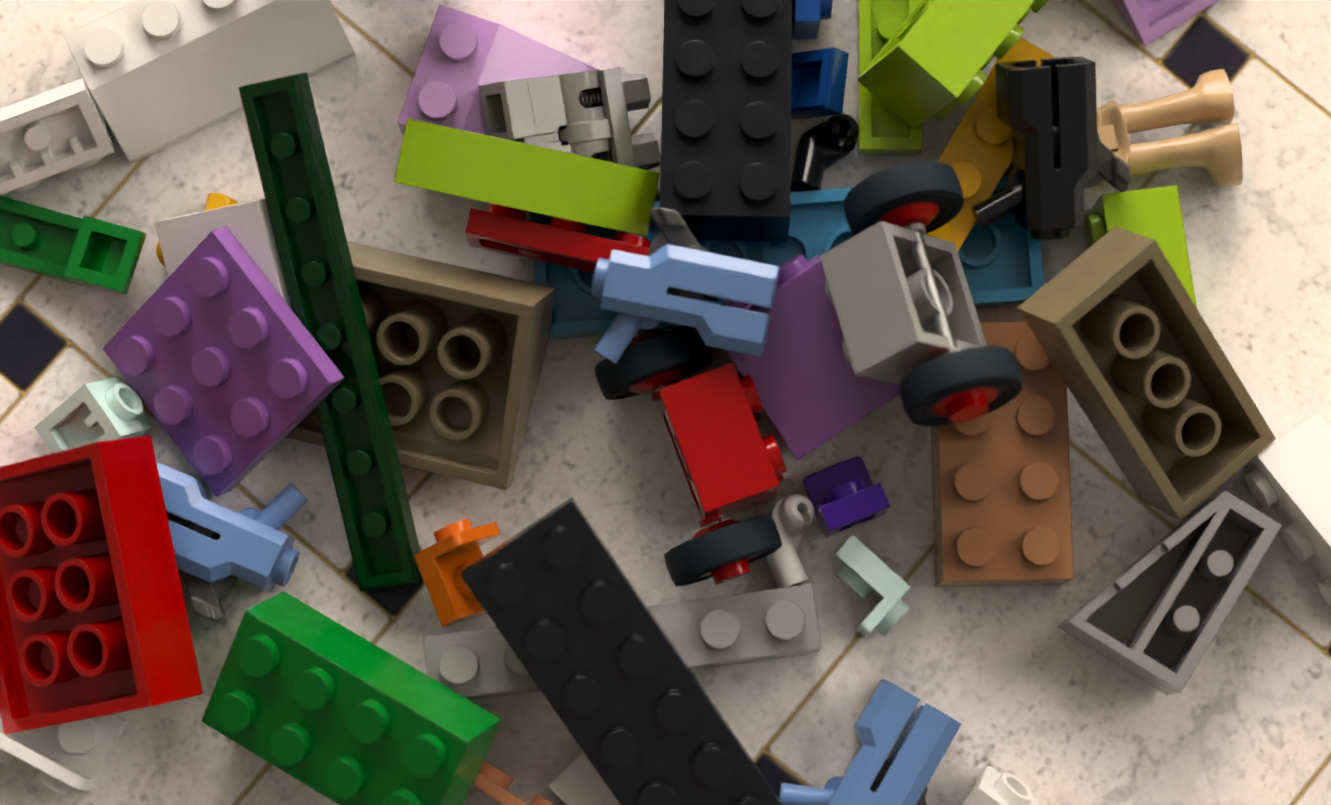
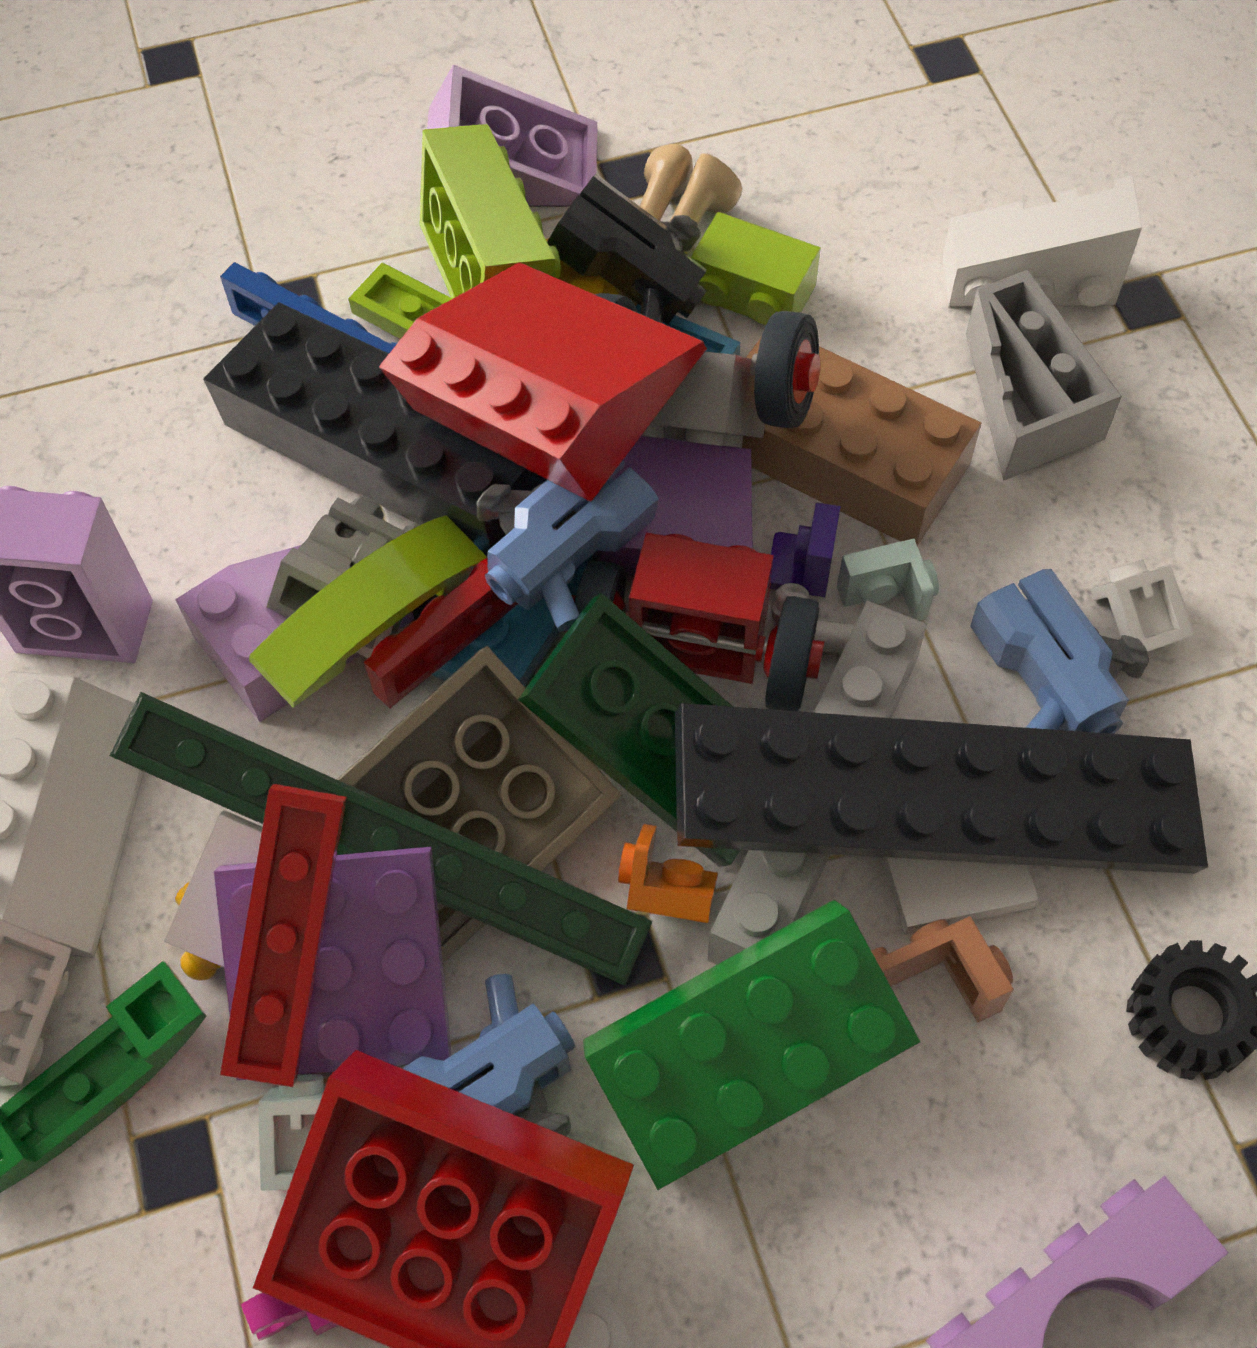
camera: 55 degrees left, 20 degrees down
(197, 320) = (283, 935): none -> red plate
(575, 437) = (616, 702): none -> dark green plate
(807, 179) = (542, 374): none -> red slope
(1147, 371) = (858, 279): dark tan brick -> none

